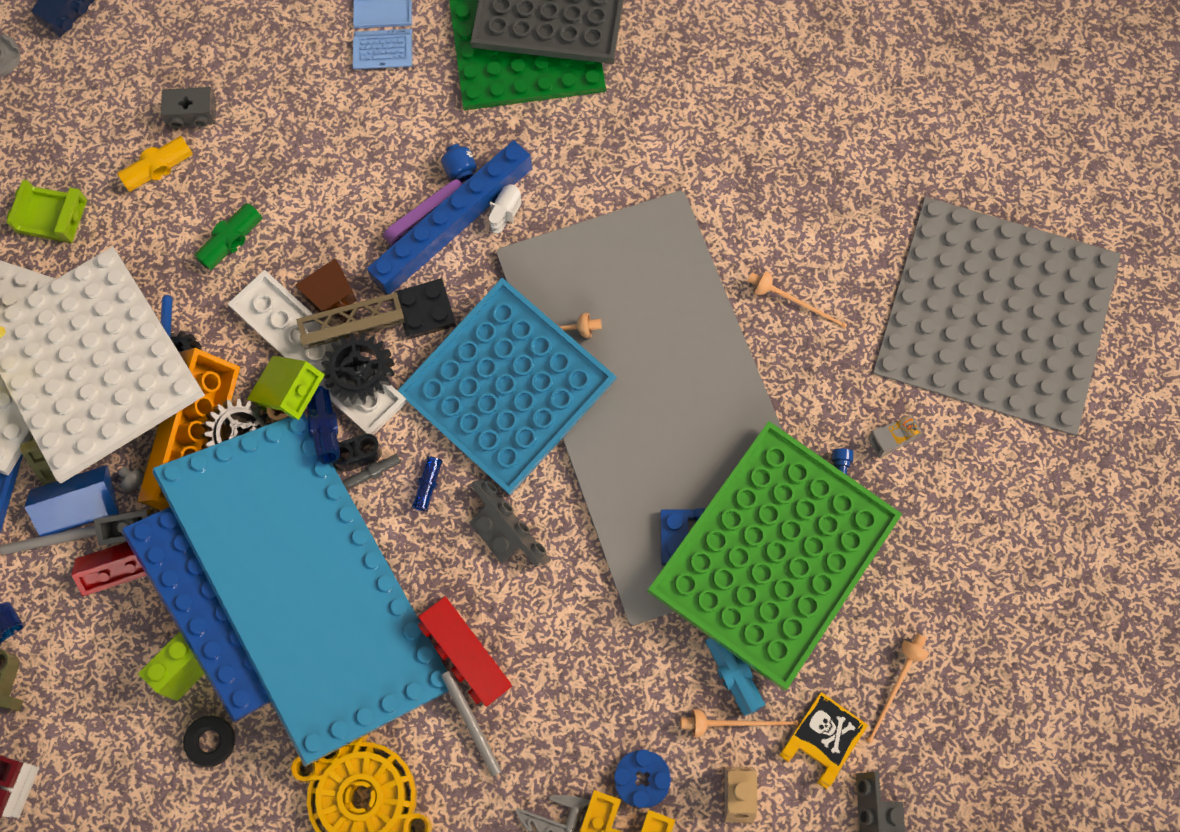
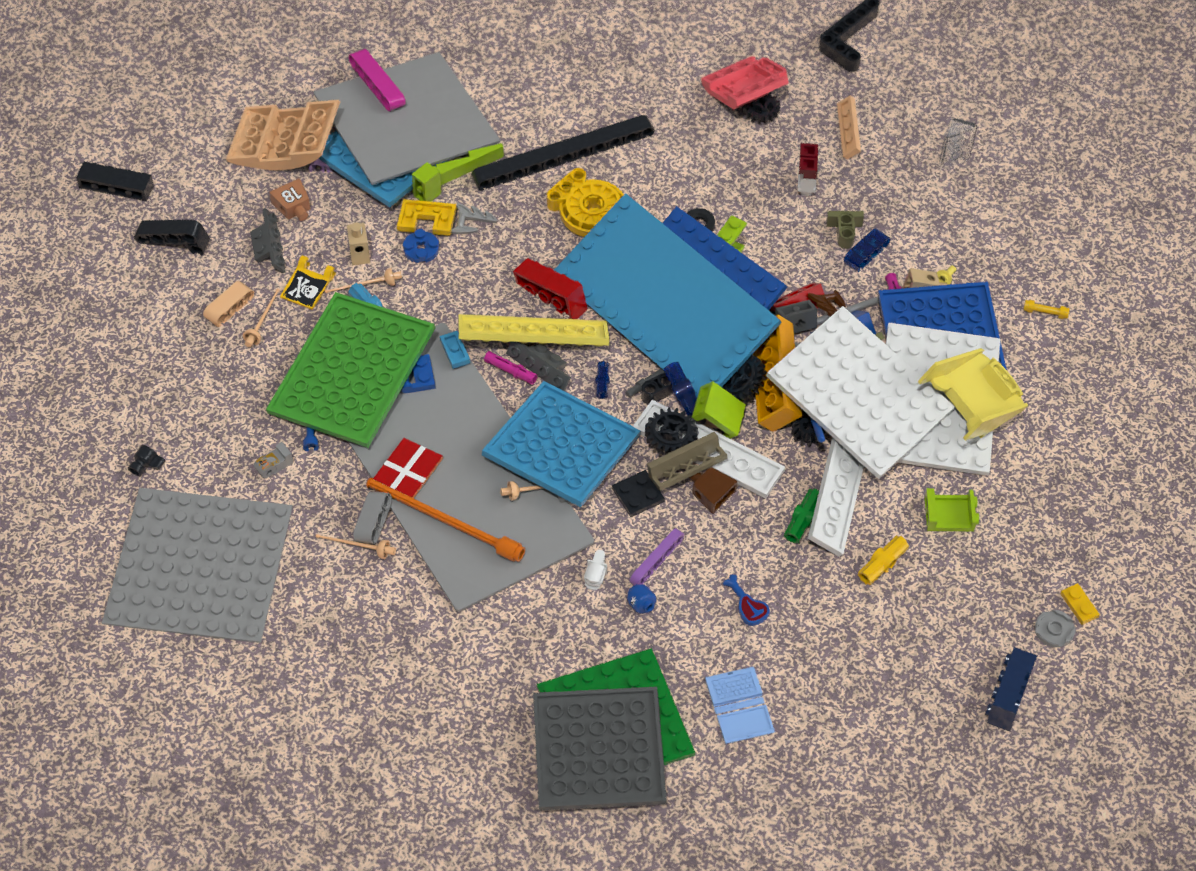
camera: 165 degrees right, 15 degrees down
(80, 548) = (823, 301): none -> reddish brown piece
(182, 241) = (836, 499): none -> white plate
(188, 107) = (874, 606): dark grey brick -> none
(333, 134) = (750, 610): none -> blue piece
(449, 218) = (634, 554): blue brick -> none
(471, 723) = (532, 251): light grey bar -> none
(506, 570) = (533, 330): none -> light yellow plate
(526, 507) = (517, 371): none -> dark pink pin
(623, 563) = (454, 349): none -> dark azure plate
(722, 378) = (407, 473): none -> flag
(772, 326) = (372, 517): none -> light grey beam
(947, 719) = (227, 303): none -> light nougat beam
(1070, 472) = (145, 458): none -> black piece

